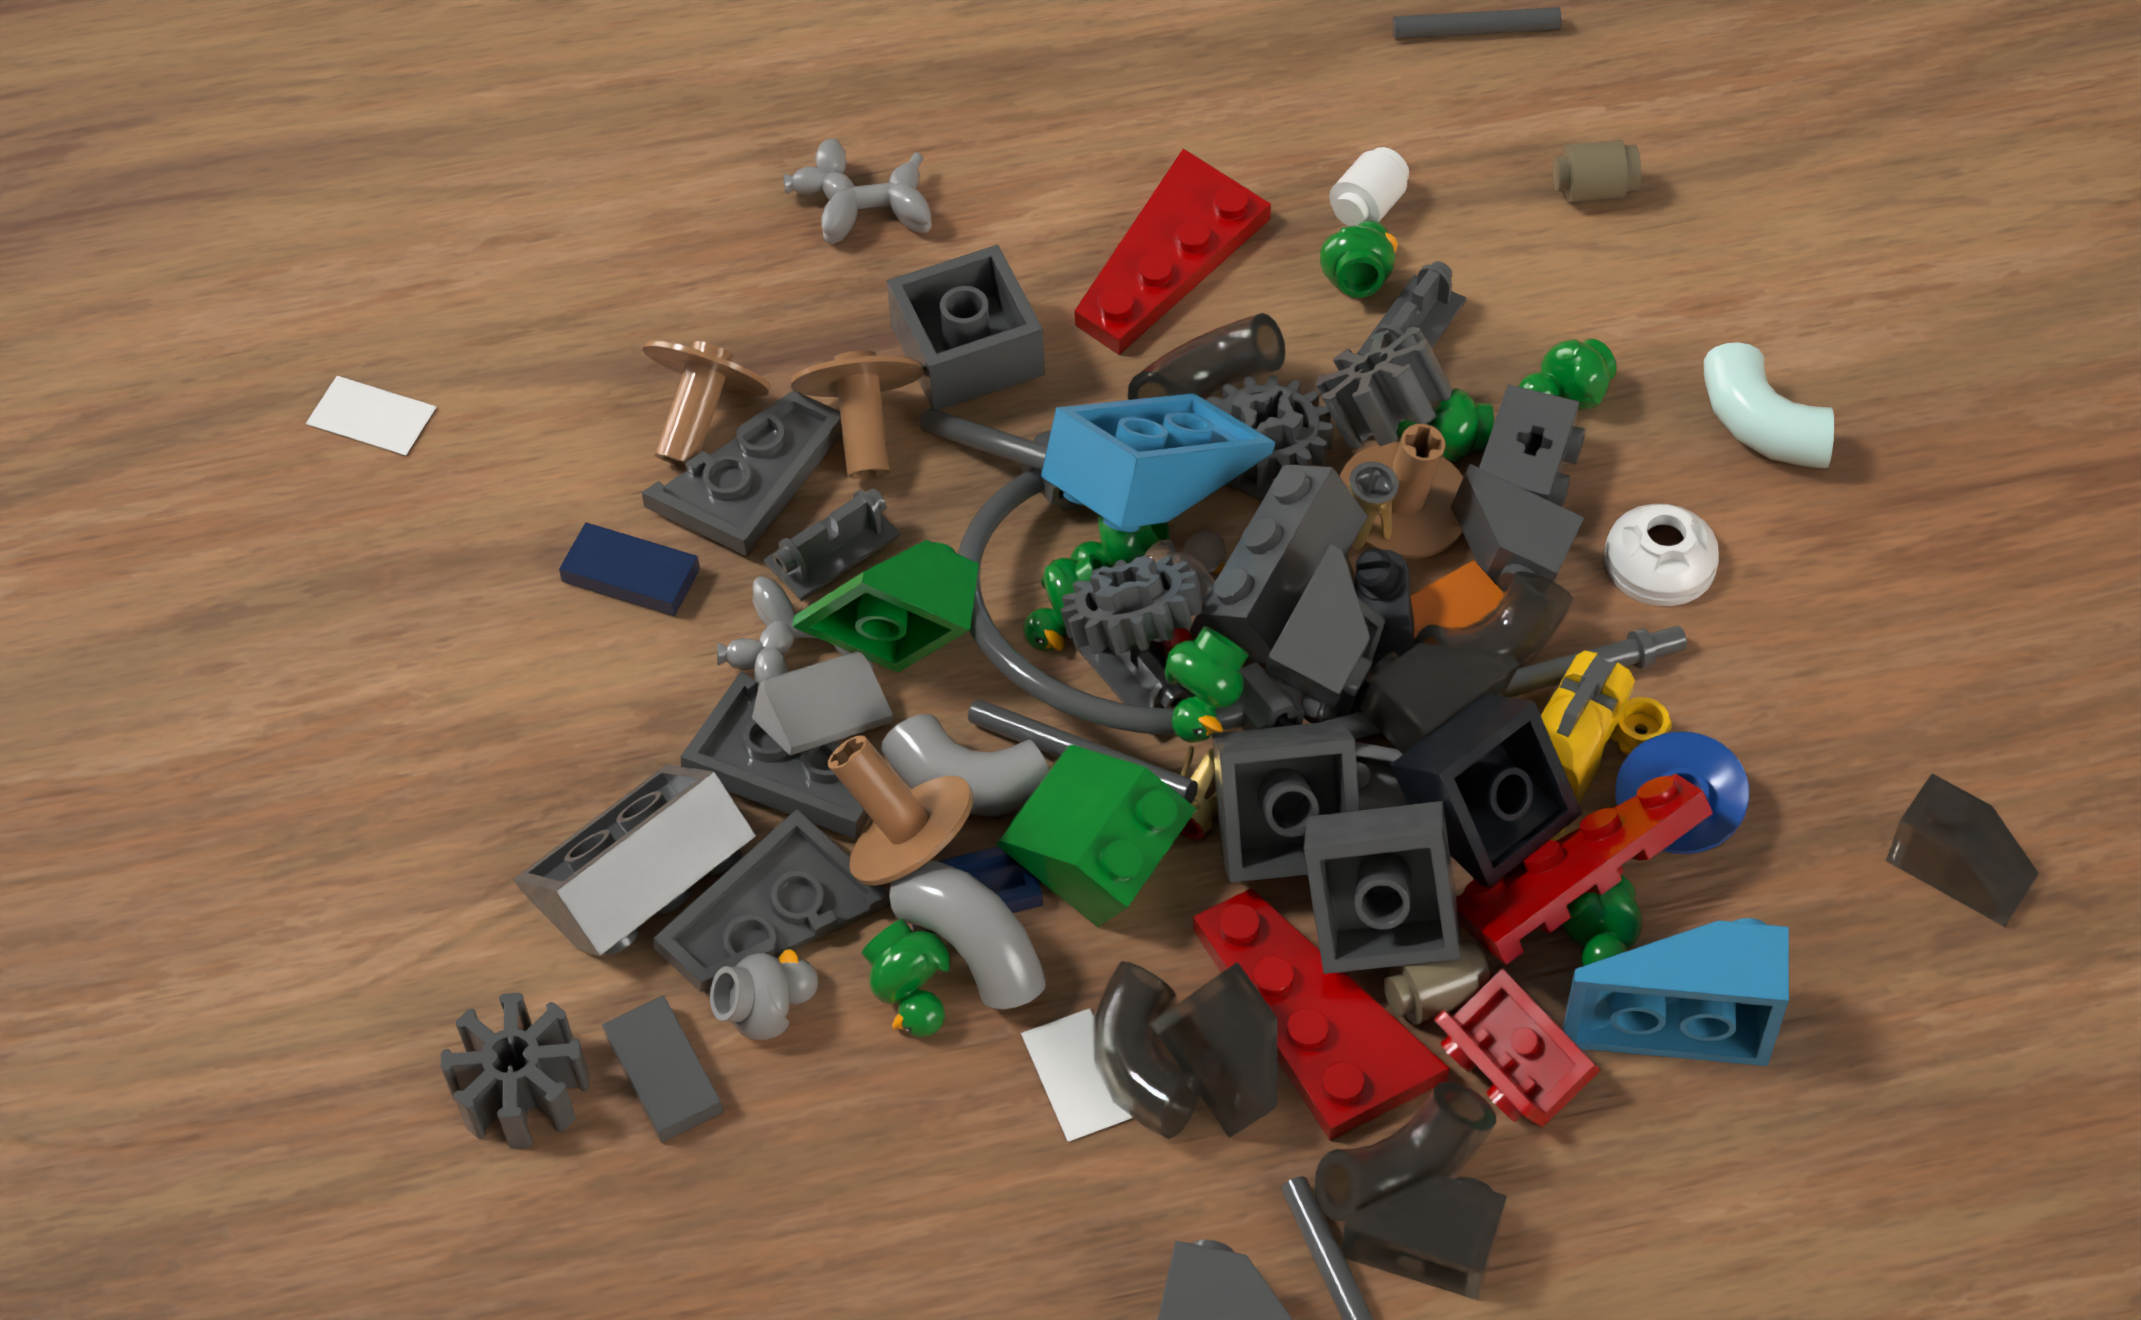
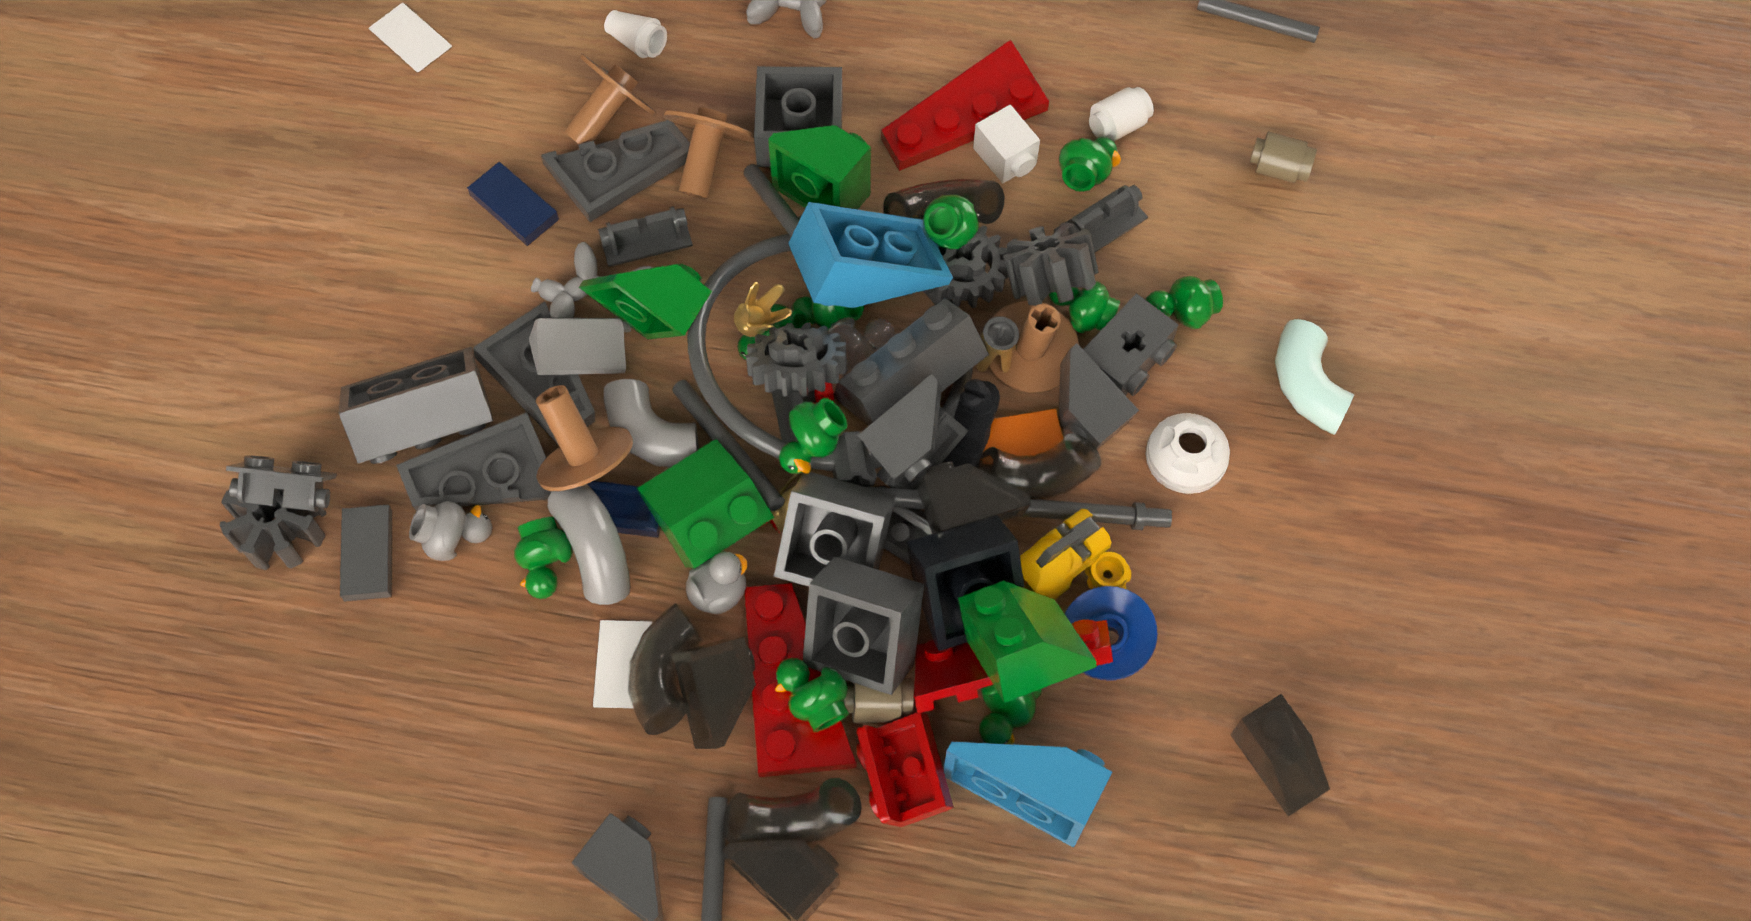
camera: 20 degrees right, 10 degrees up
(492, 1012) = (261, 479): none -> dark grey hinge
(687, 302) = (637, 33): none -> white cone
(1027, 370) = (821, 166): none -> green slope
(1047, 574) = (755, 314): none -> pearl gold piece
(1160, 919) = (717, 583): none -> light grey animal
(1238, 376) = (950, 221): none -> green animal
(1246, 271) = (1006, 144): none -> white brick
(1368, 1004) = (813, 701): none -> green animal
(1591, 824) = (1022, 639): none -> green slope

